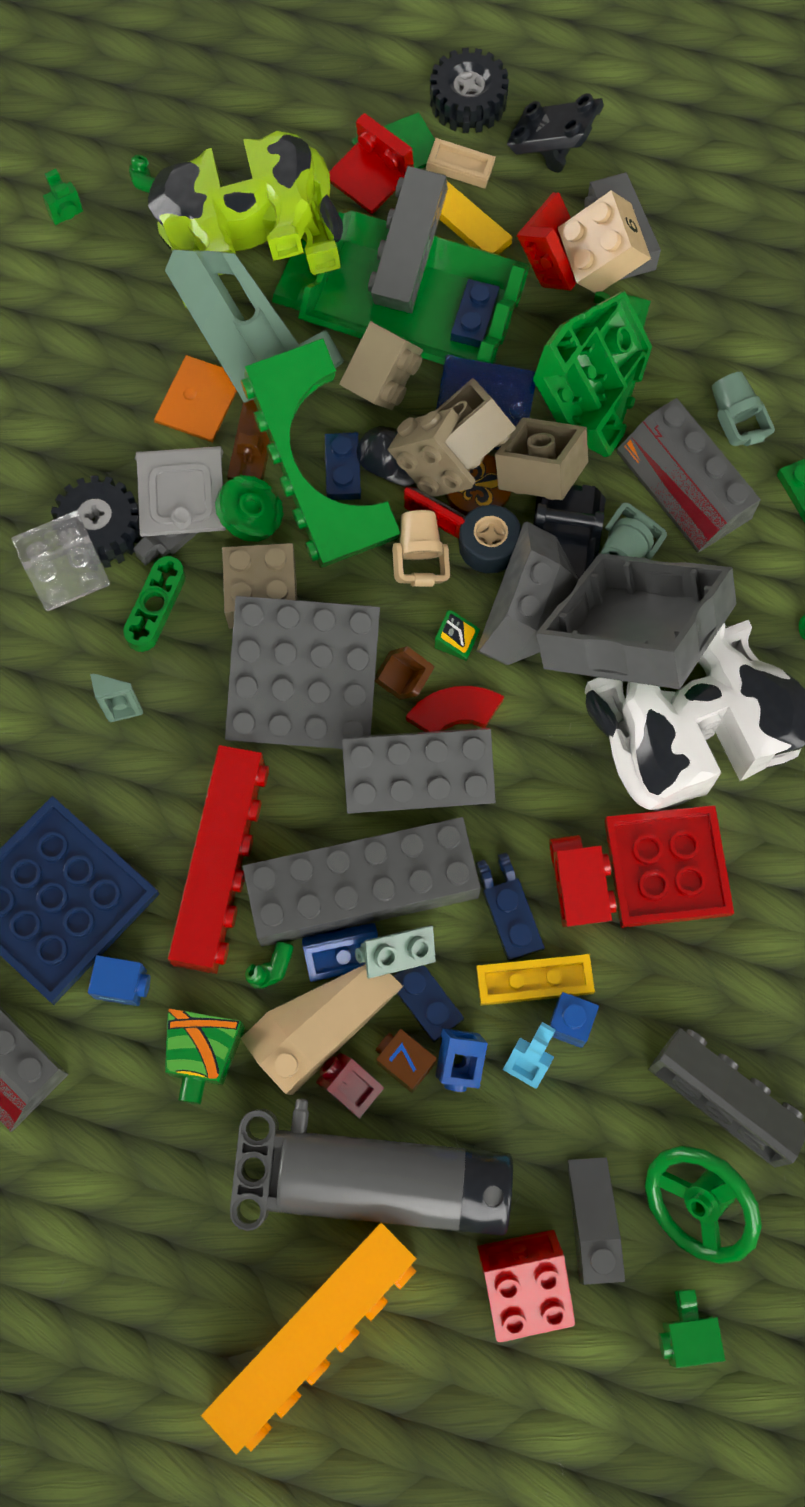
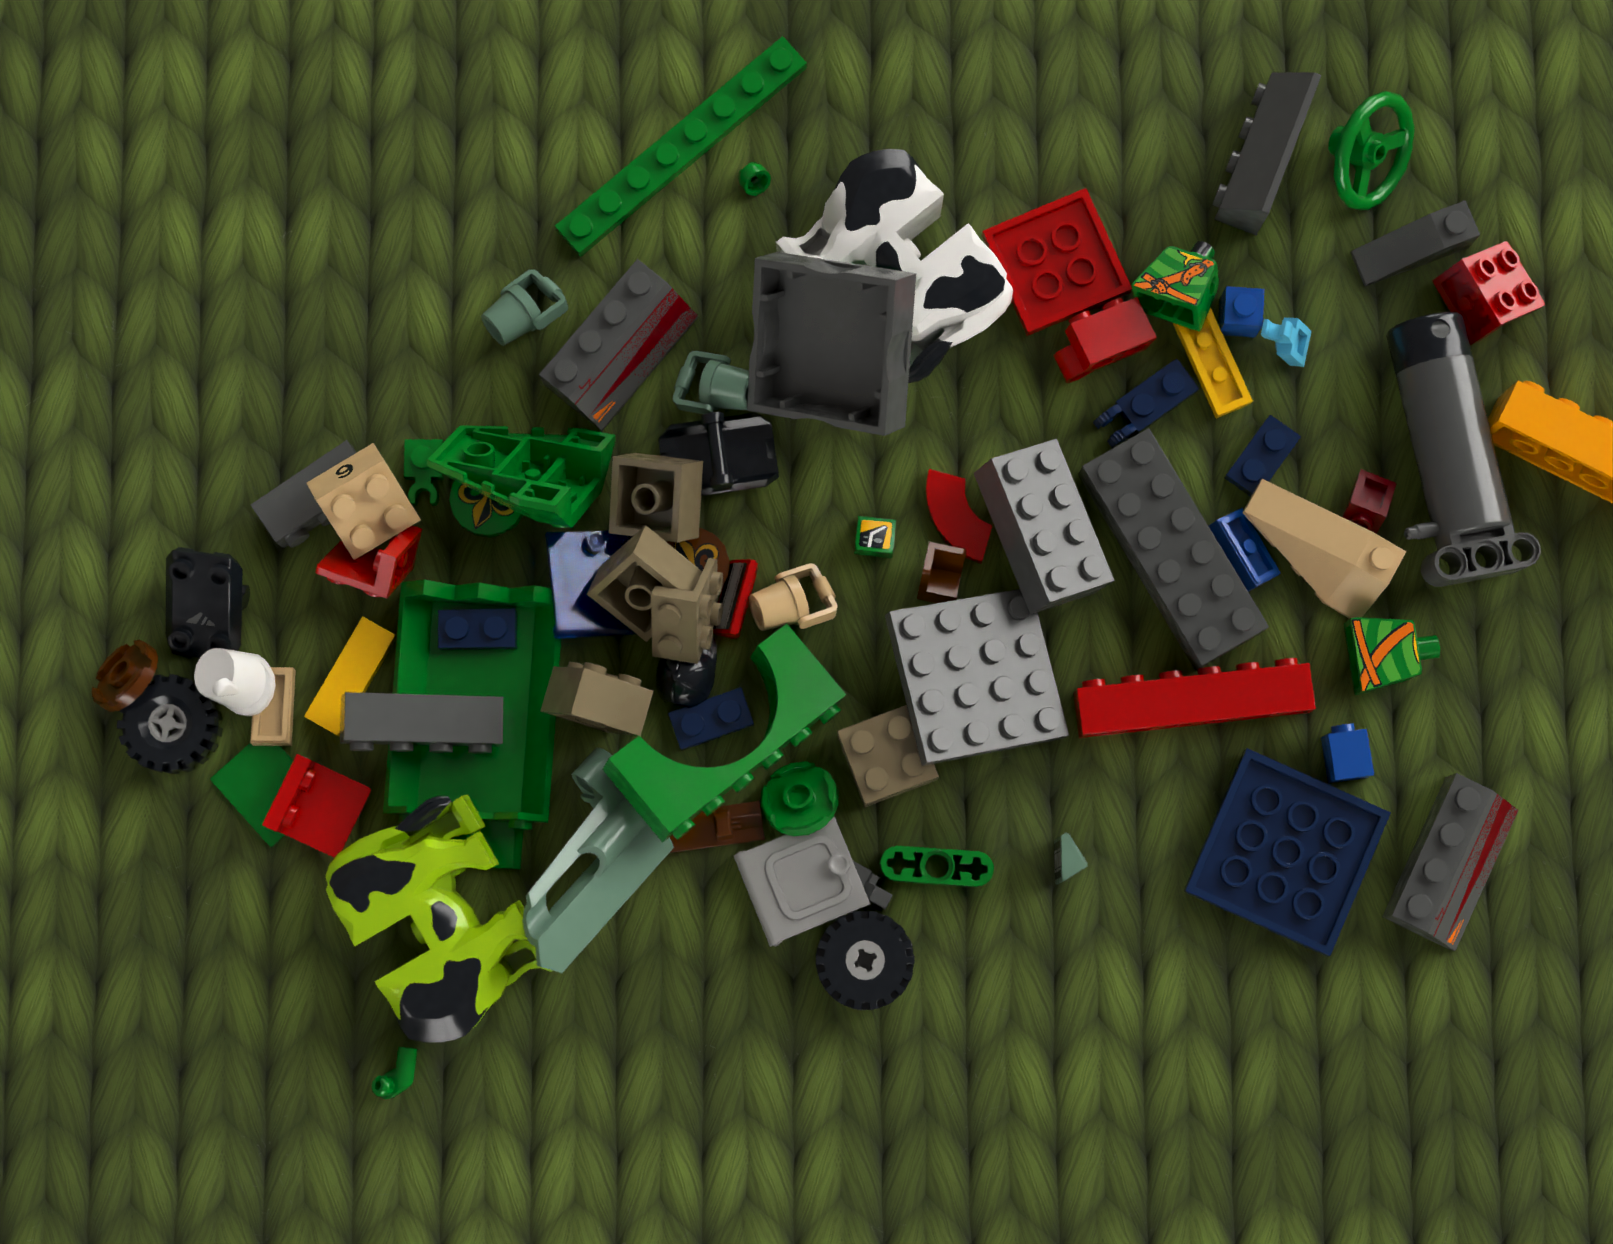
camera: 105 degrees left, 10 degrees up
(60, 561) = (928, 978): clear bracket -> none
(63, 199) = (466, 1156): green plate -> none
(197, 399) = (674, 910): orange piece -> none
(271, 971) = (1285, 613): green arm -> none
(397, 951) = (1226, 485): hinge -> none
(404, 1059) = (1329, 456): reddish brown brick -> none
(469, 1070) = (1311, 404): blue brick -> none
(488, 131) = (235, 680): none -> white hat
(488, 525) = (752, 519): black wheel -> none
(515, 65) = (125, 675): none -> reddish brown tile
(530, 591) = (813, 469): dark grey wedge -> none
(613, 967) = (1179, 285): none -> torso
(692, 1338) = (1485, 135): green brick -> none

